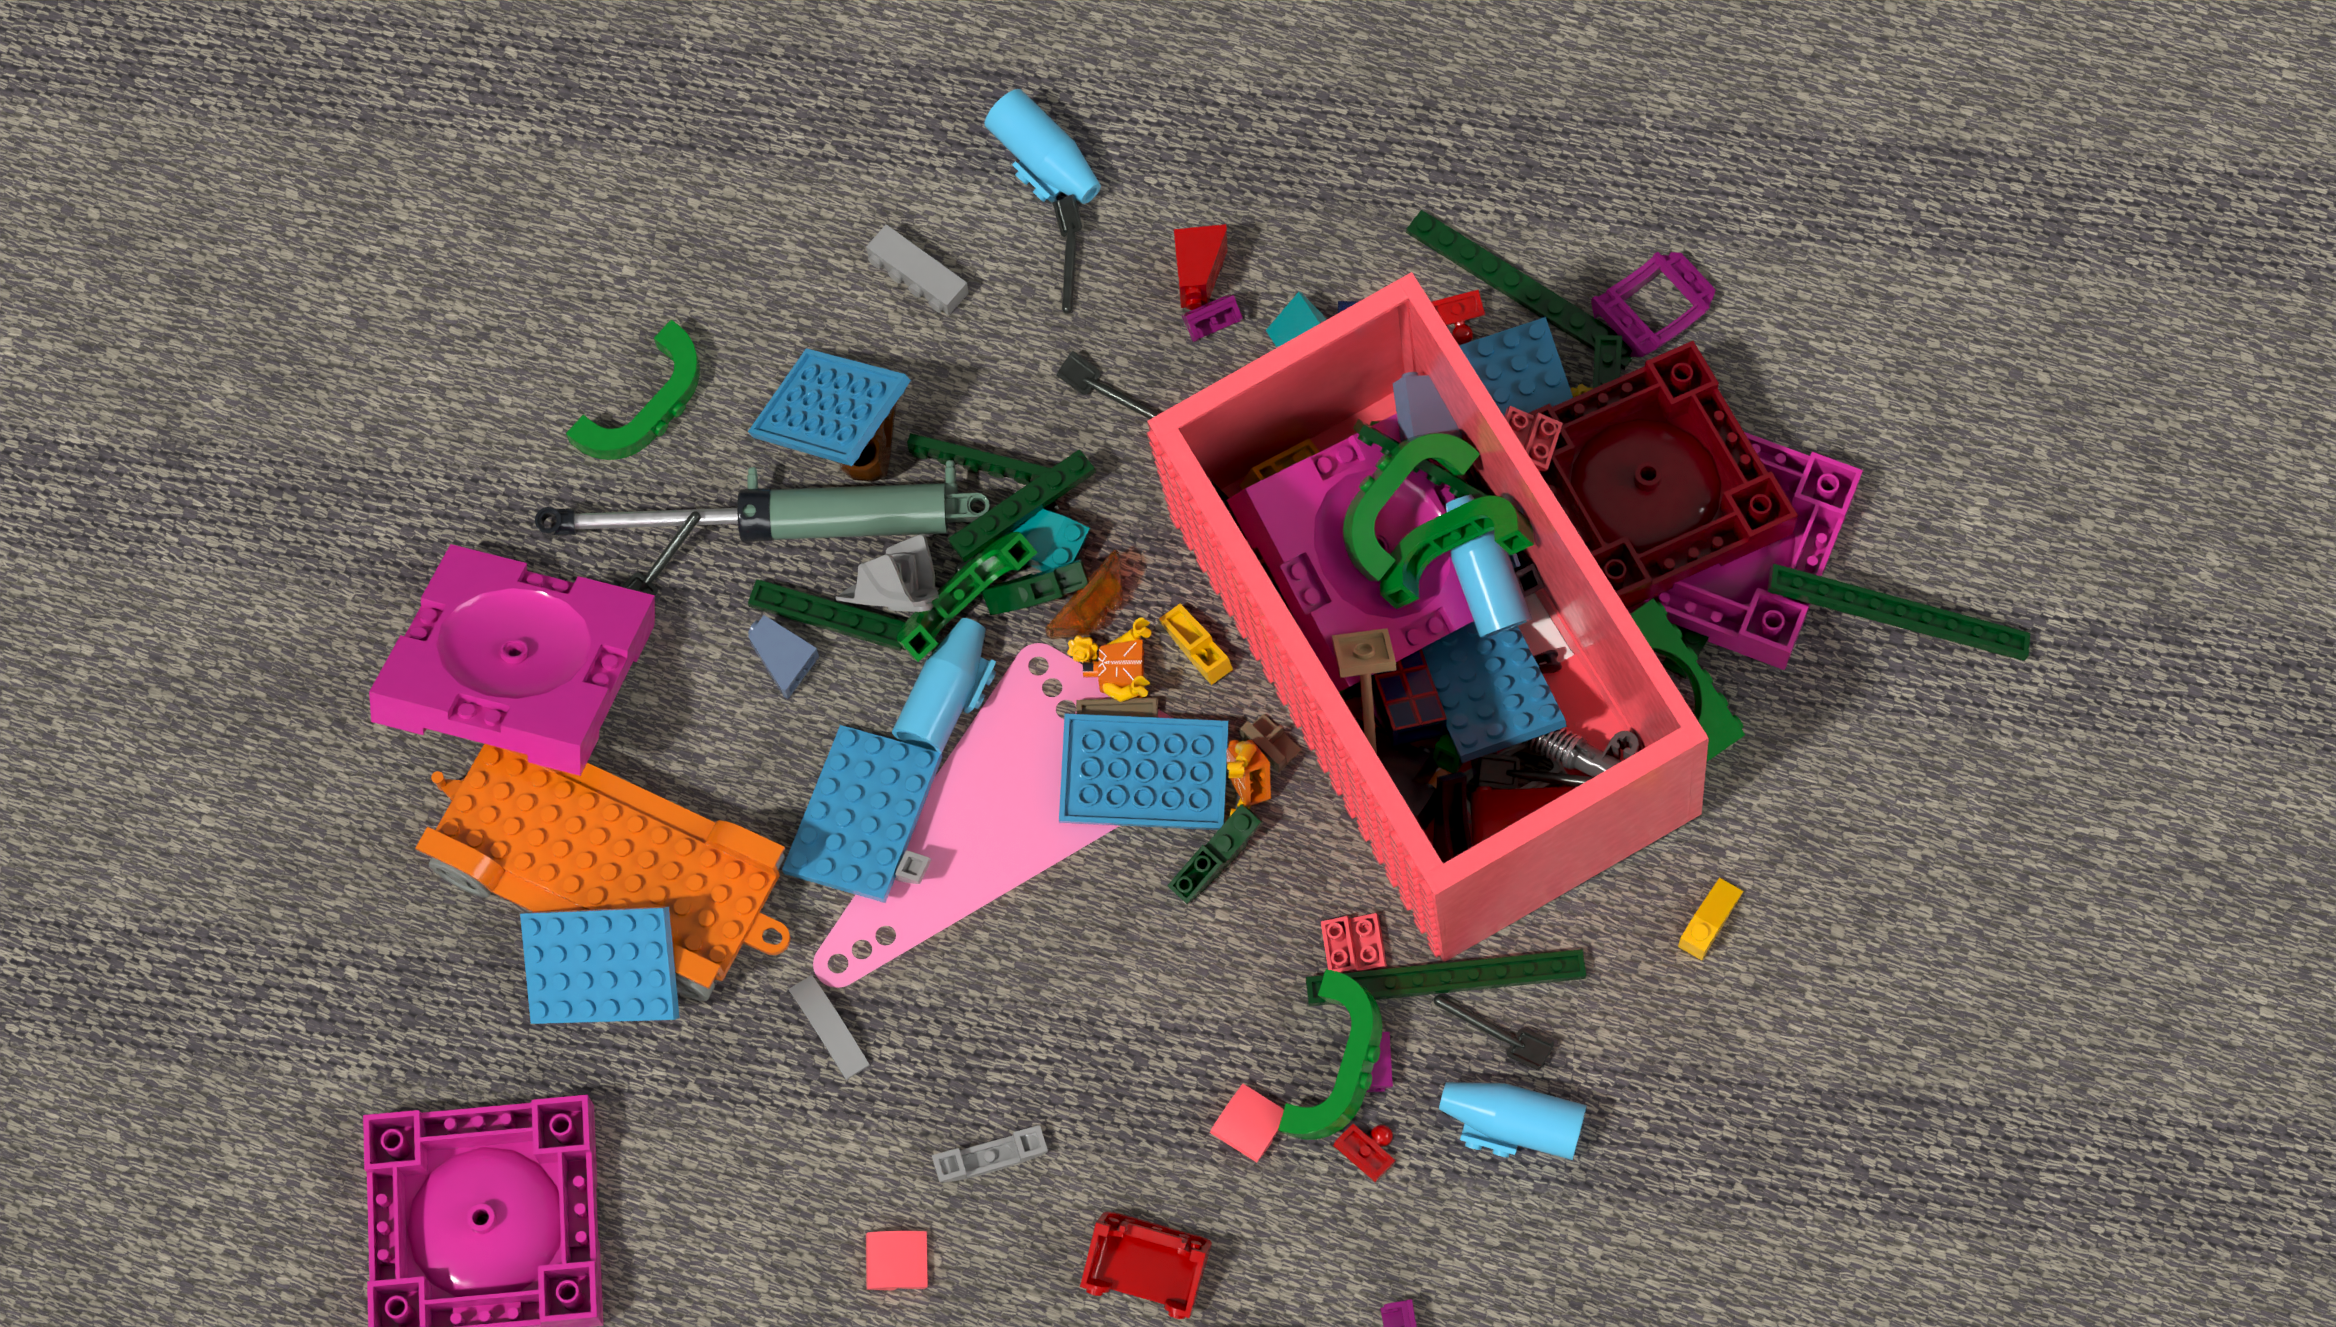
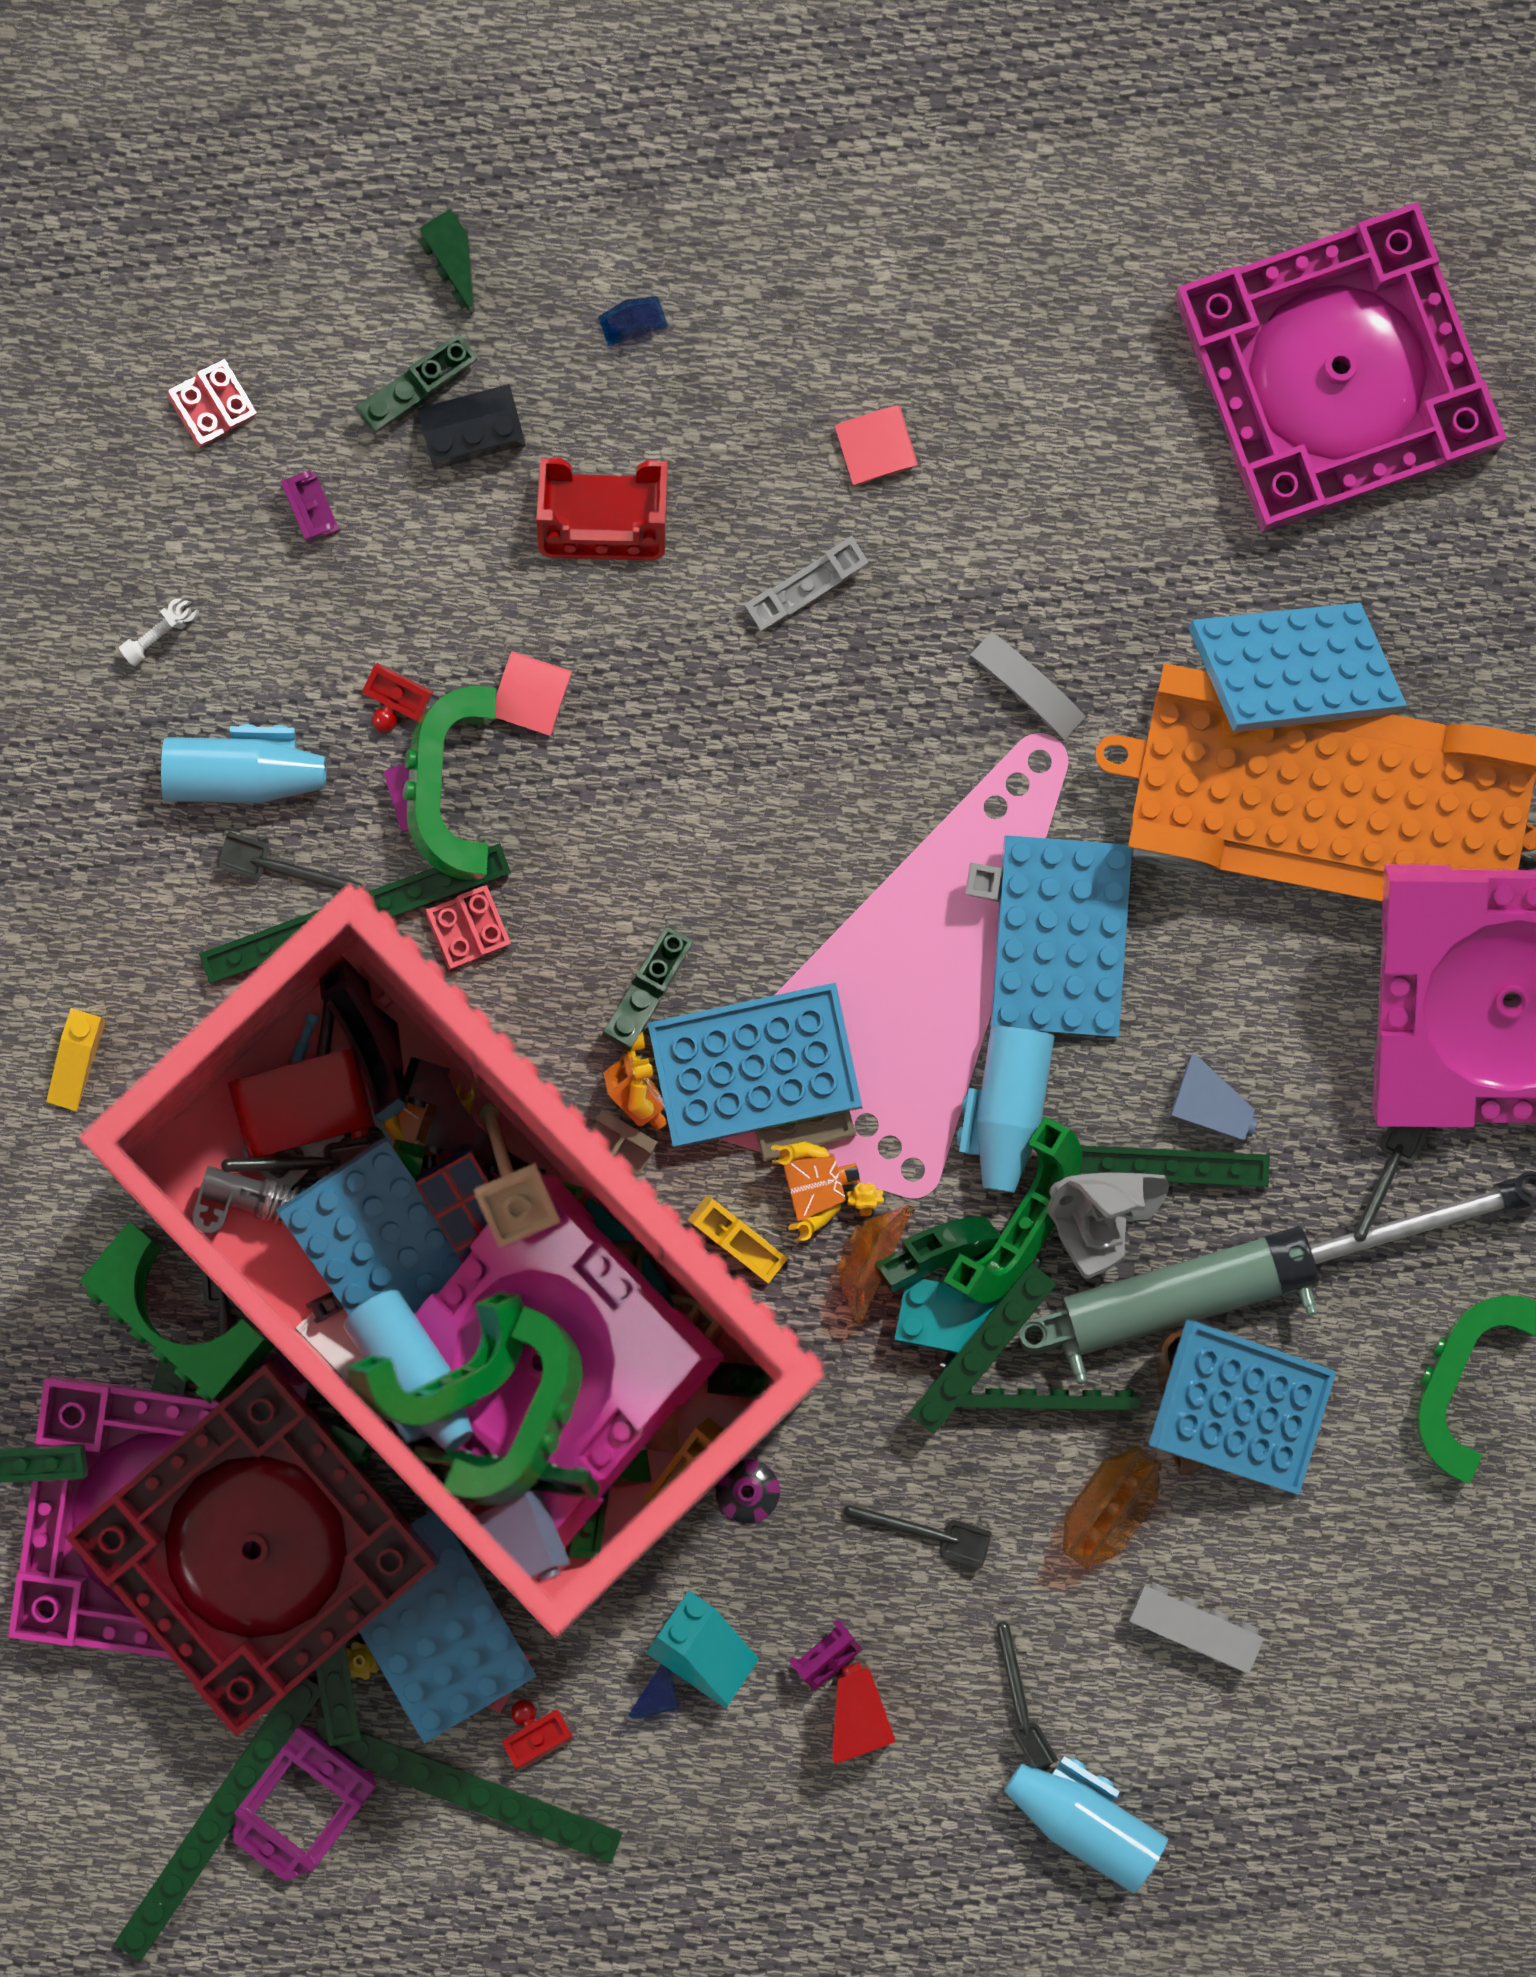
camera: 165 degrees right, 15 degrees up
(958, 370) = (1111, 1507): none -> clear orange wedge
(1536, 433) = (400, 1550): coral slope -> none
(1543, 1261) = (134, 650): none -> white bar
(1749, 290) = (215, 1821): none -> dark green plate

